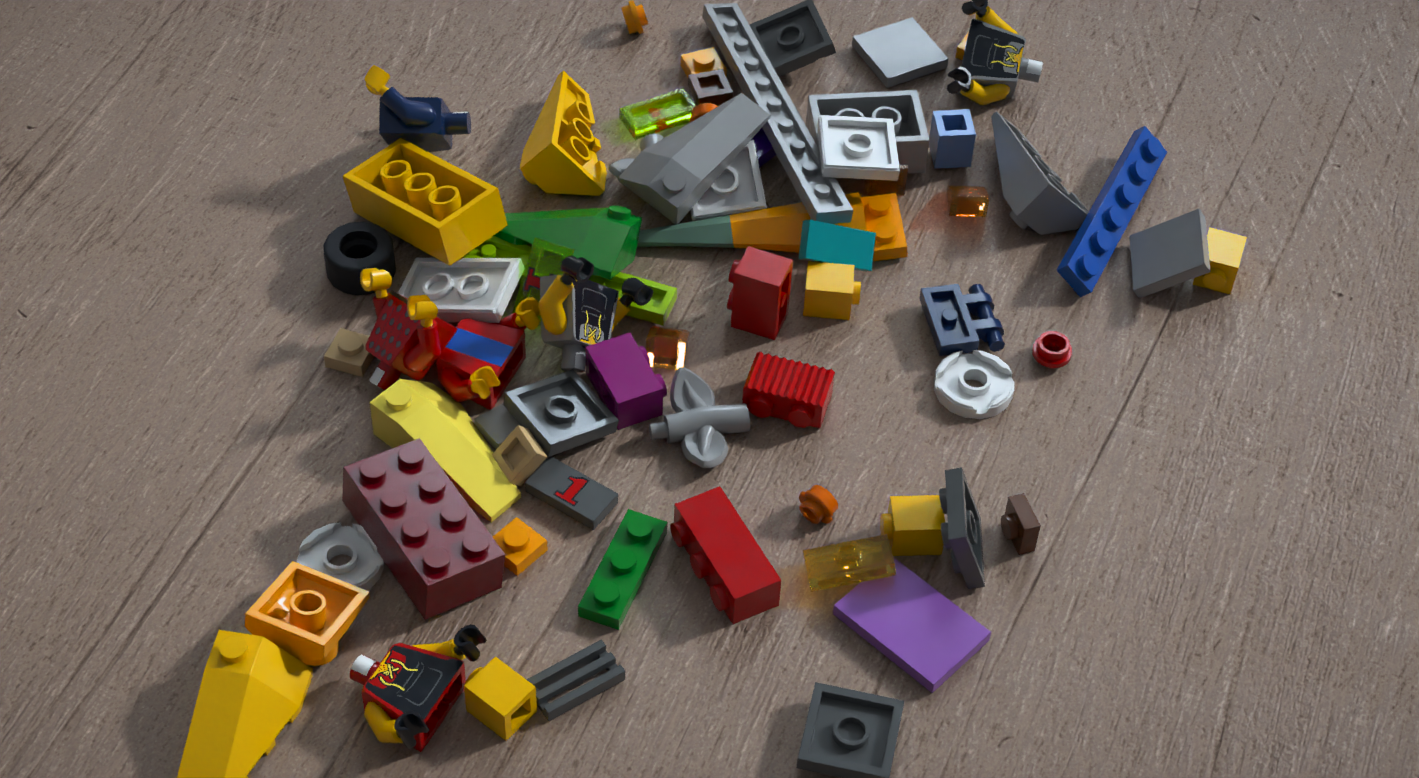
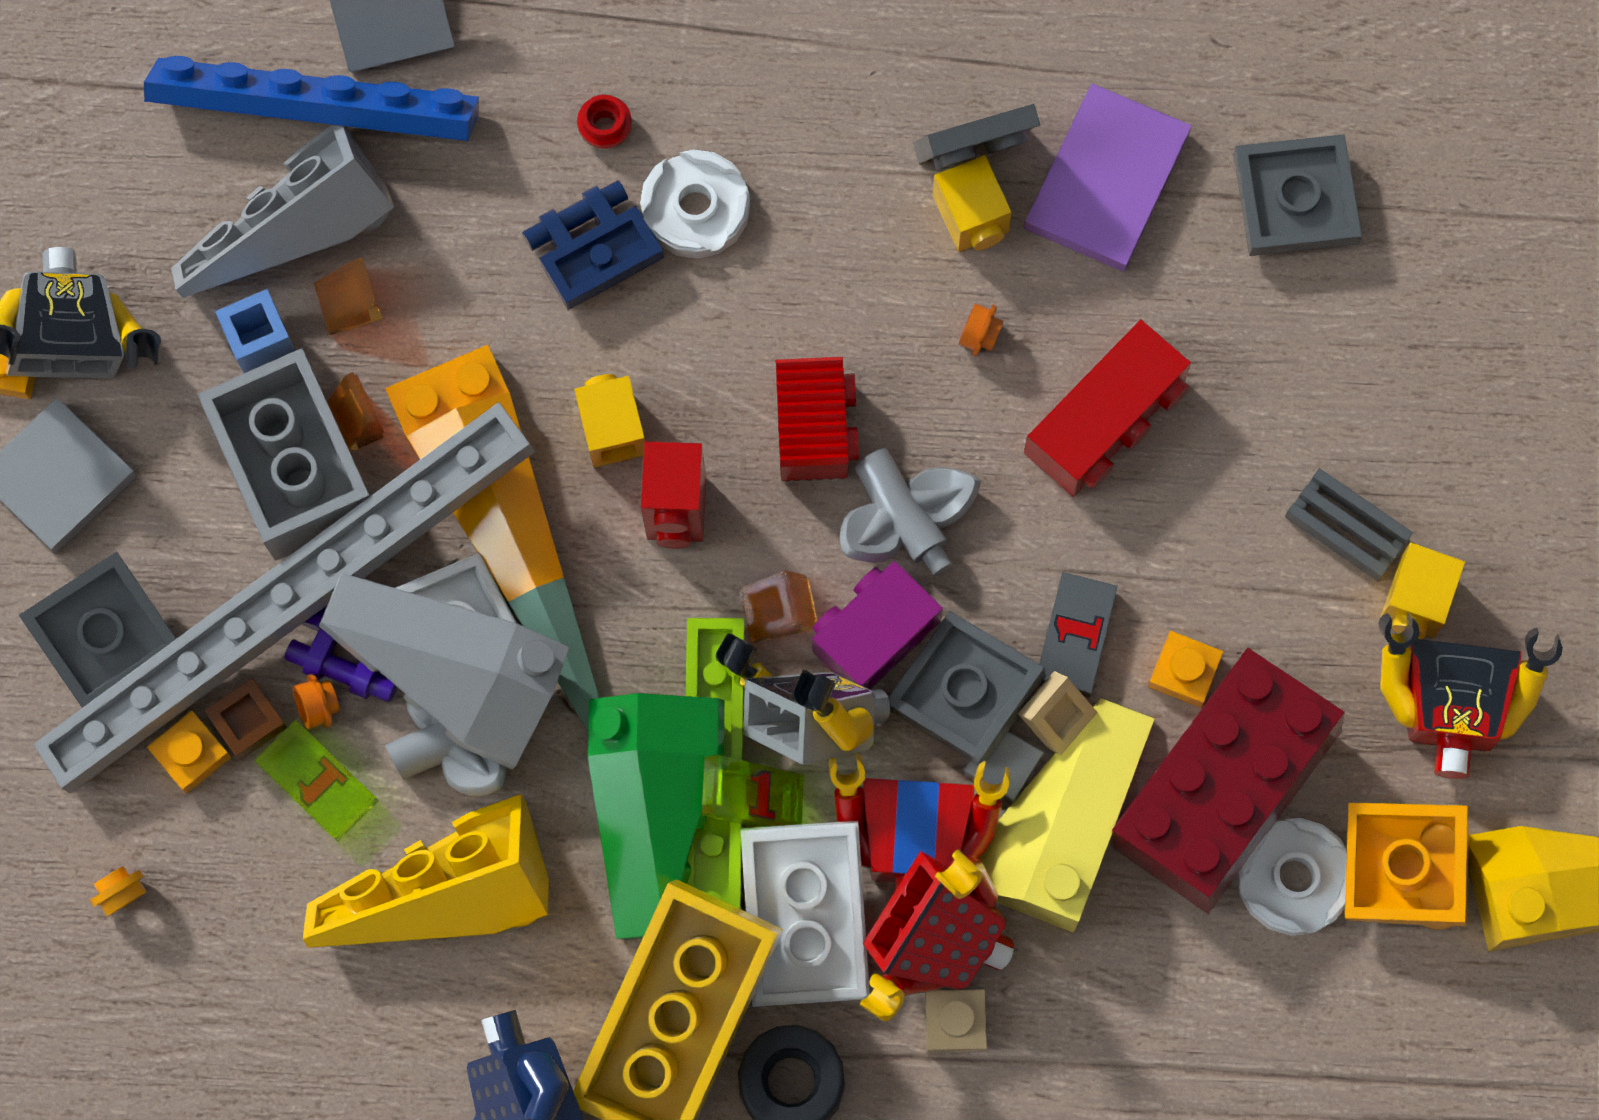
camera: 105 degrees left, 25 degrees up
(622, 569) = (1165, 529): green plate -> none
(837, 245) = (546, 421): teal tile -> none
(849, 562) = (1058, 264): clear yellow plate -> none
(858, 148) = (366, 433): white tile -> none
(1020, 524) = (920, 86): reddish brown plate -> none

